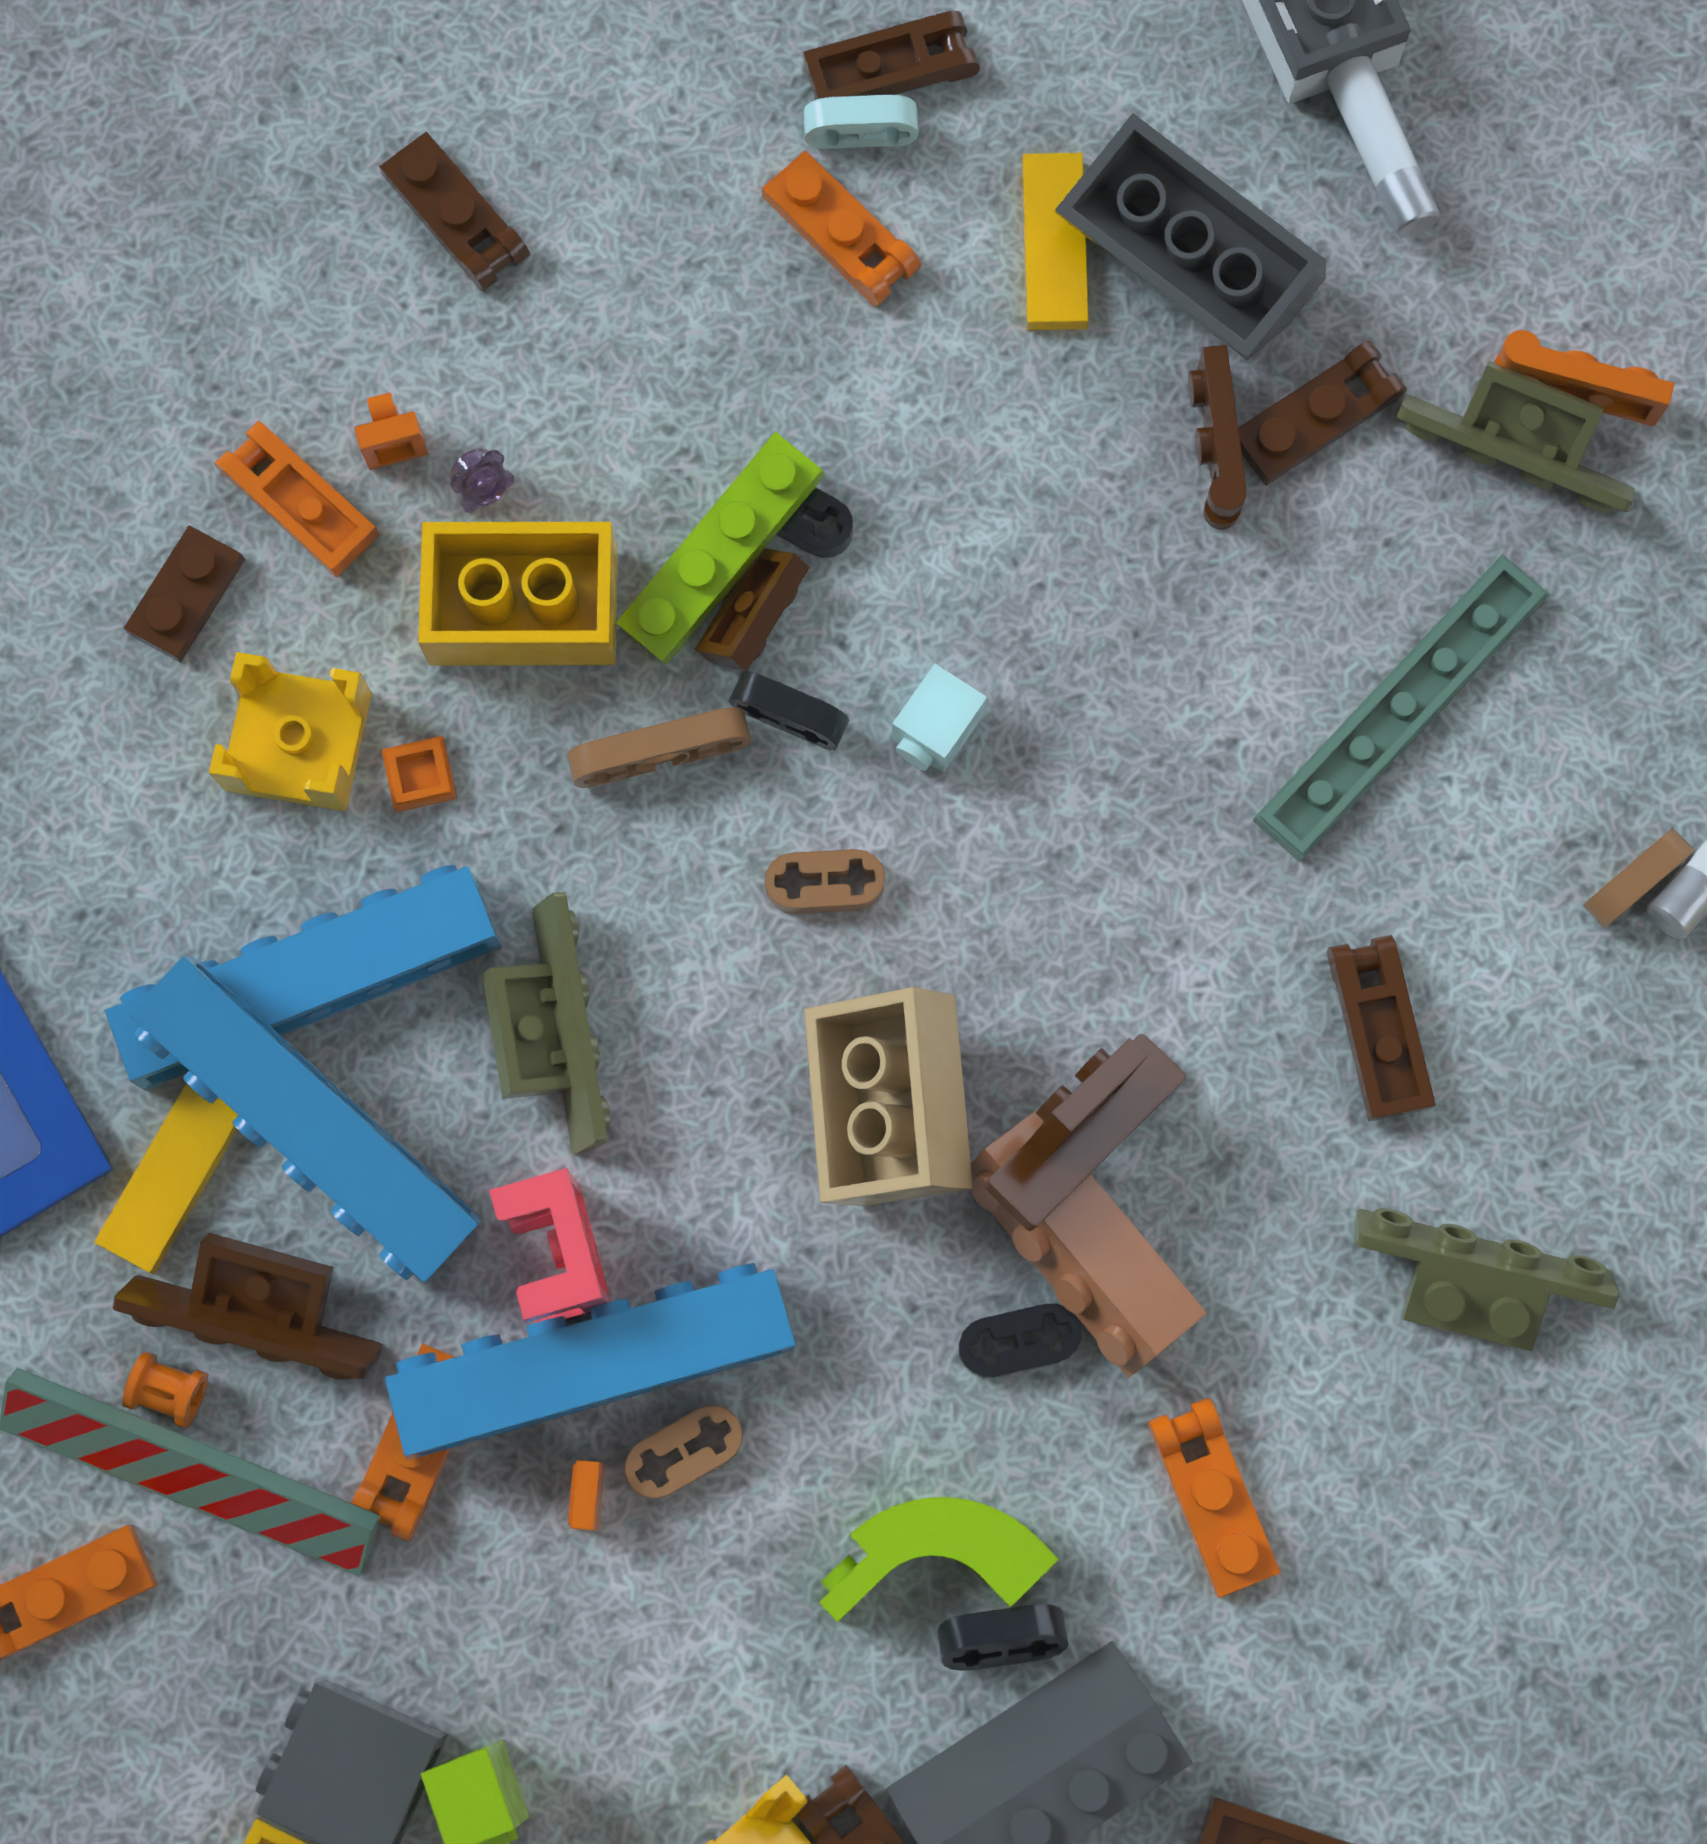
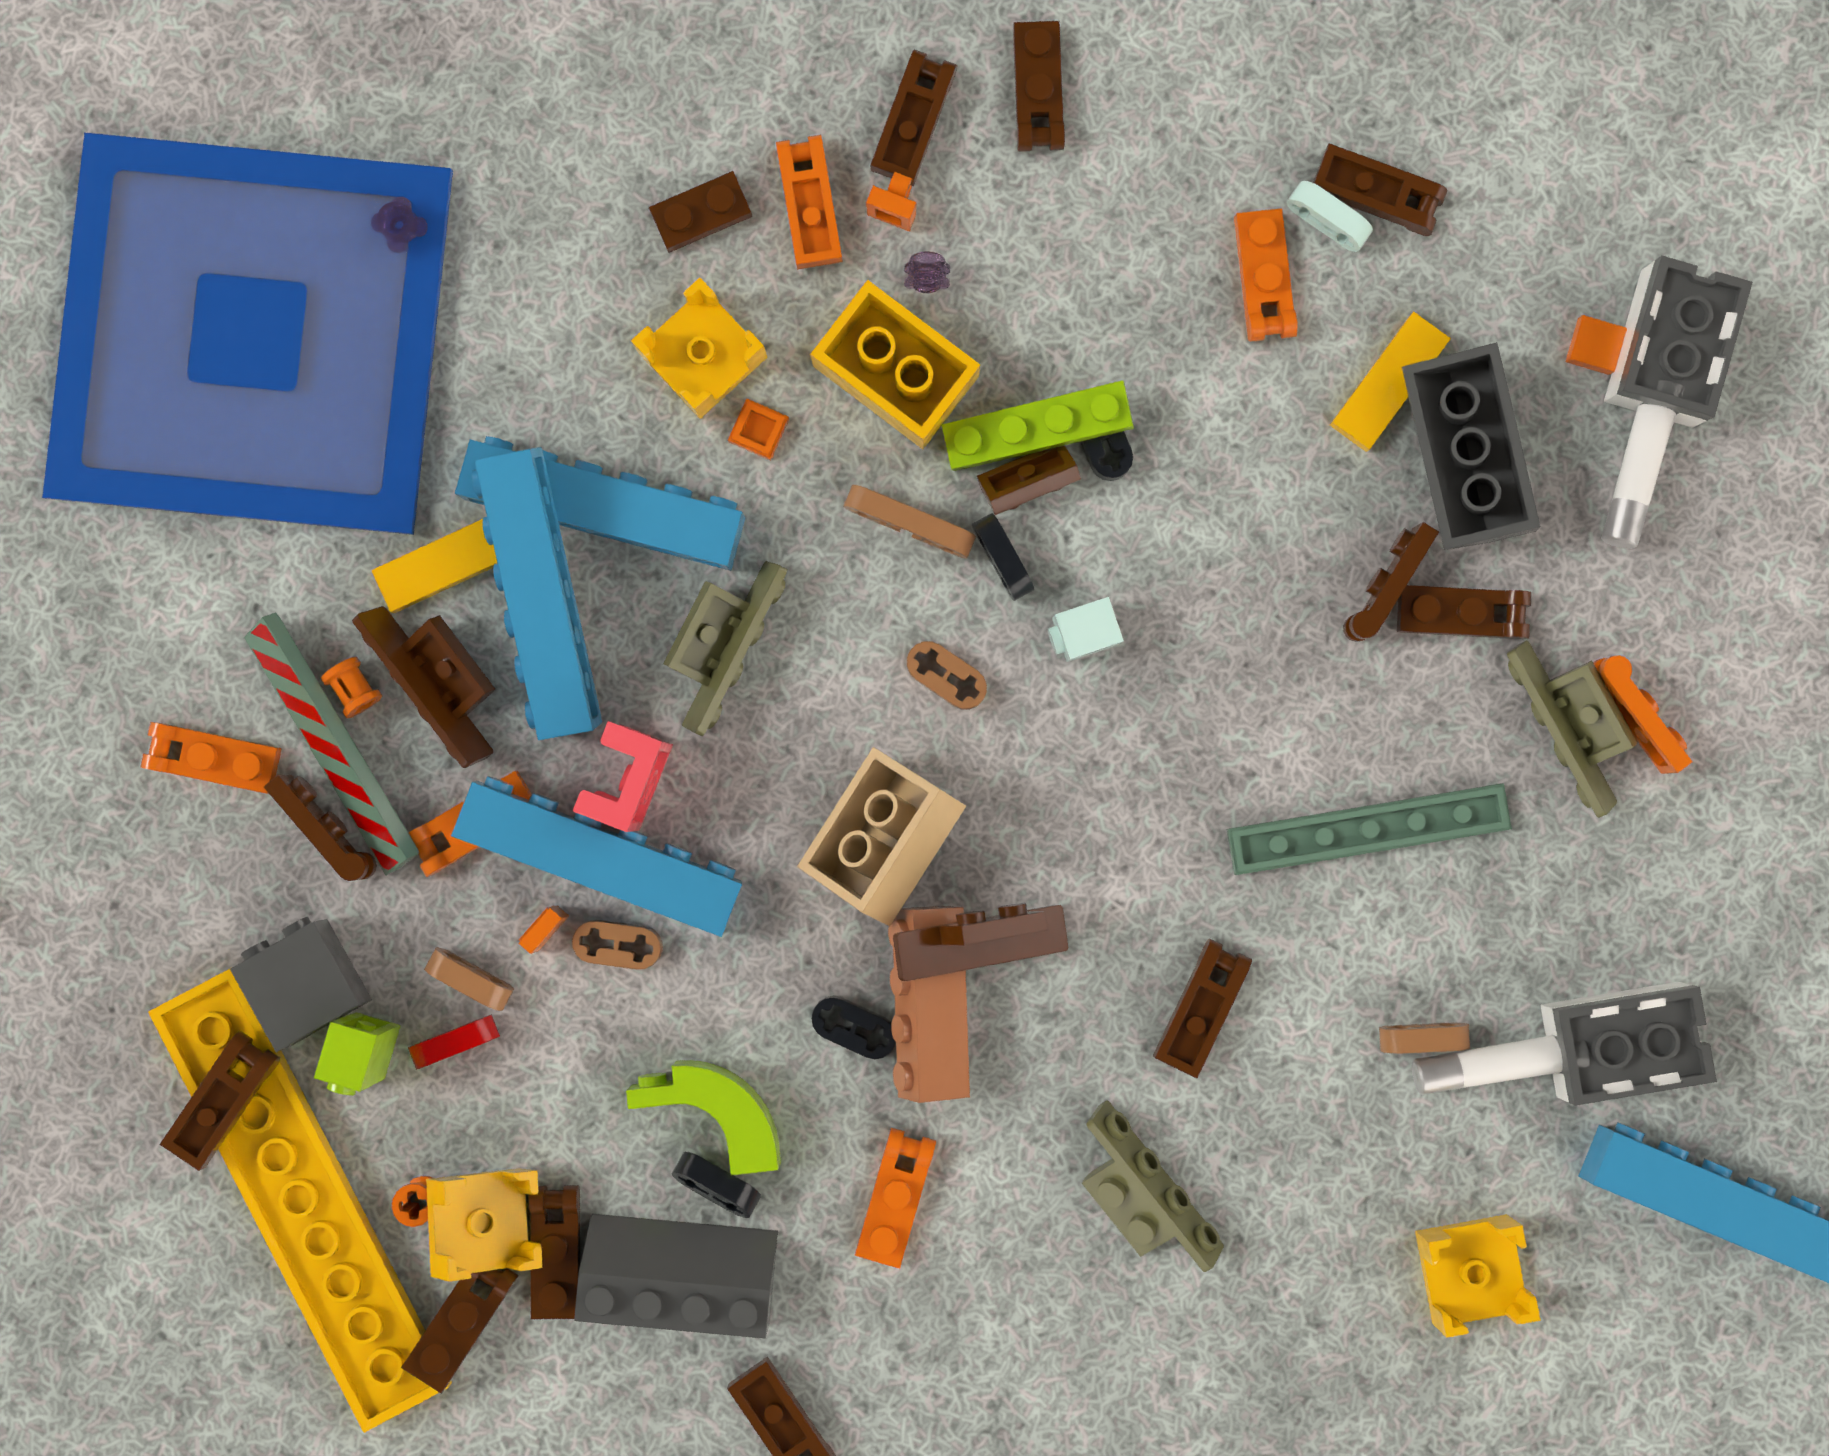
camera: 35 degrees right, 10 degrees up
(250, 1576) = (321, 829): none -> reddish brown plate
(344, 334) = (913, 117): none -> reddish brown plate
(543, 1620) = (469, 979): none -> medium nougat beam
(579, 1706) = (453, 1042): none -> red beam
(1235, 55) = (1596, 345): none -> orange tile

